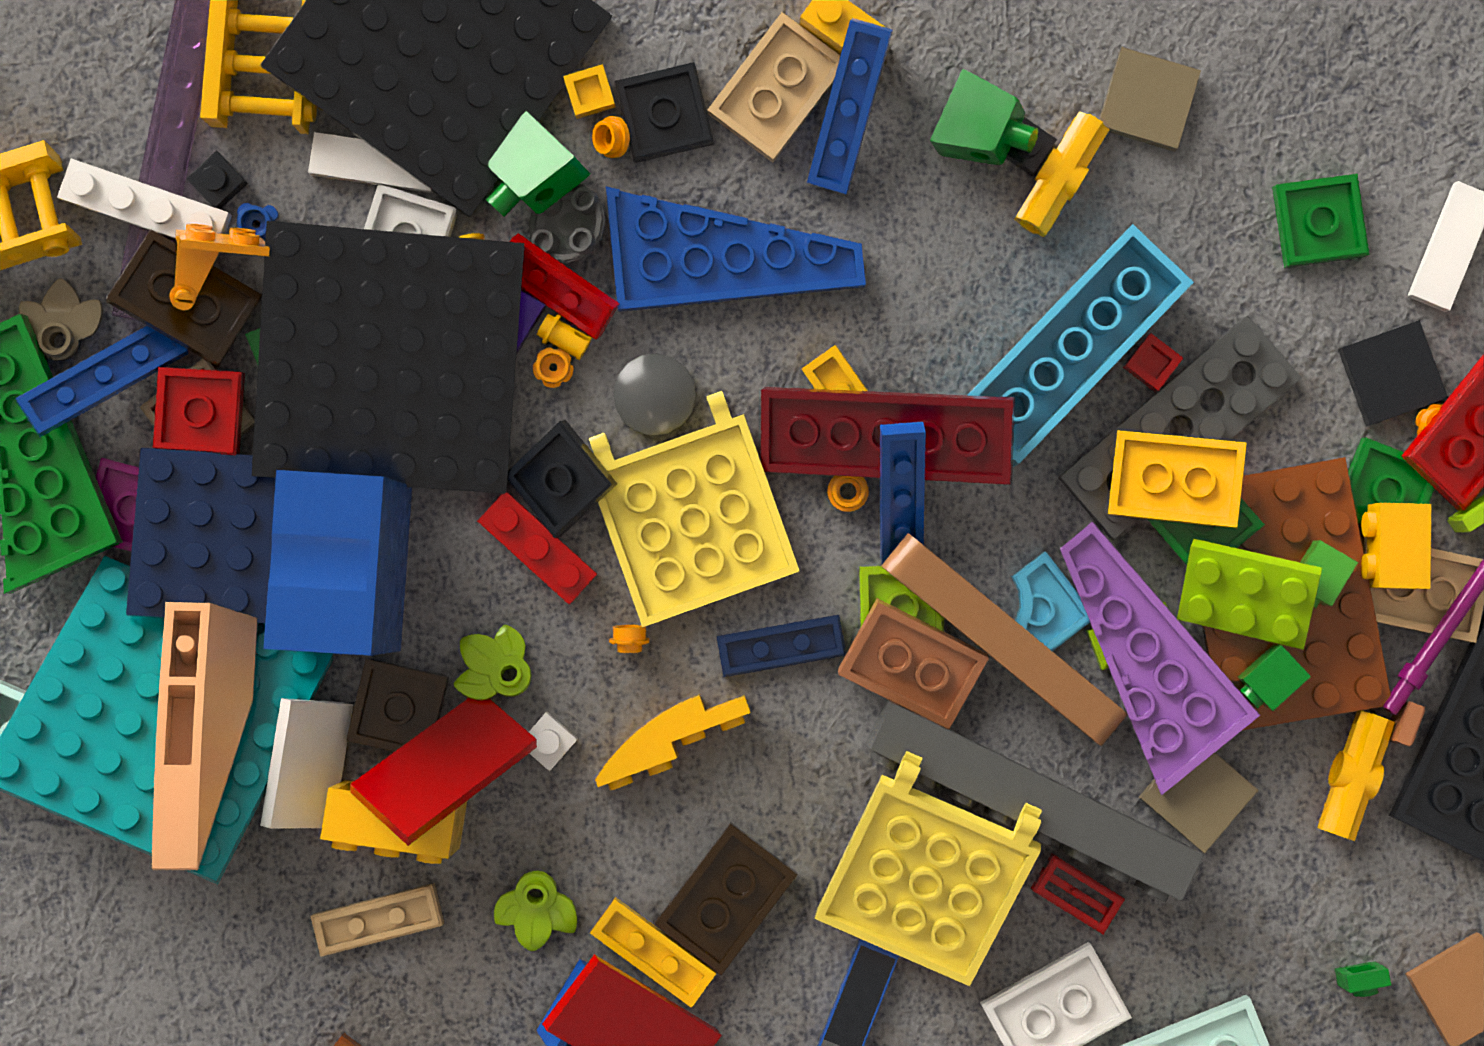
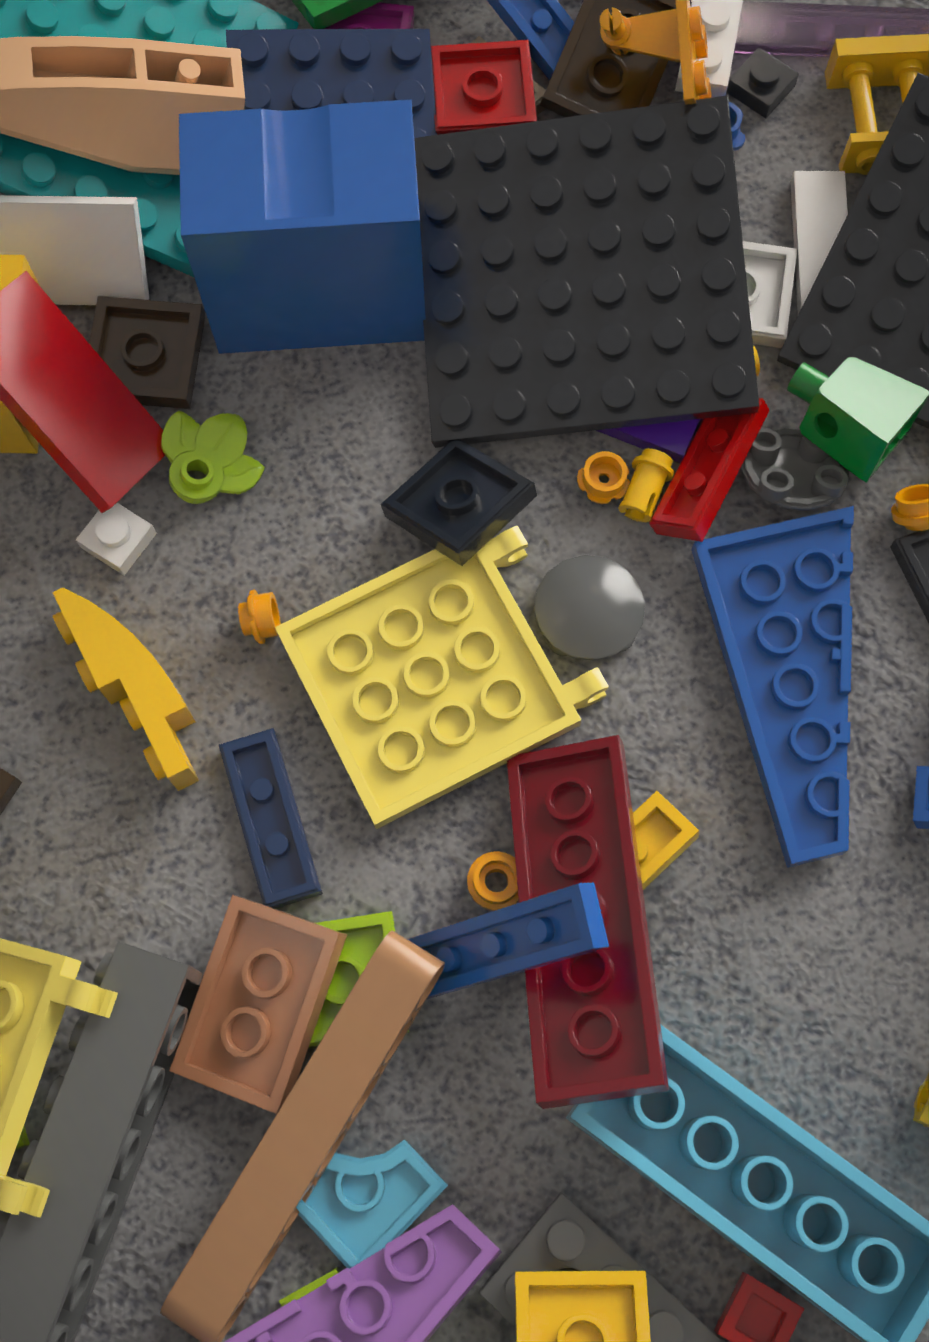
camera: 85 degrees right, 15 degrees down
(537, 547) = (354, 504): red plate -> none

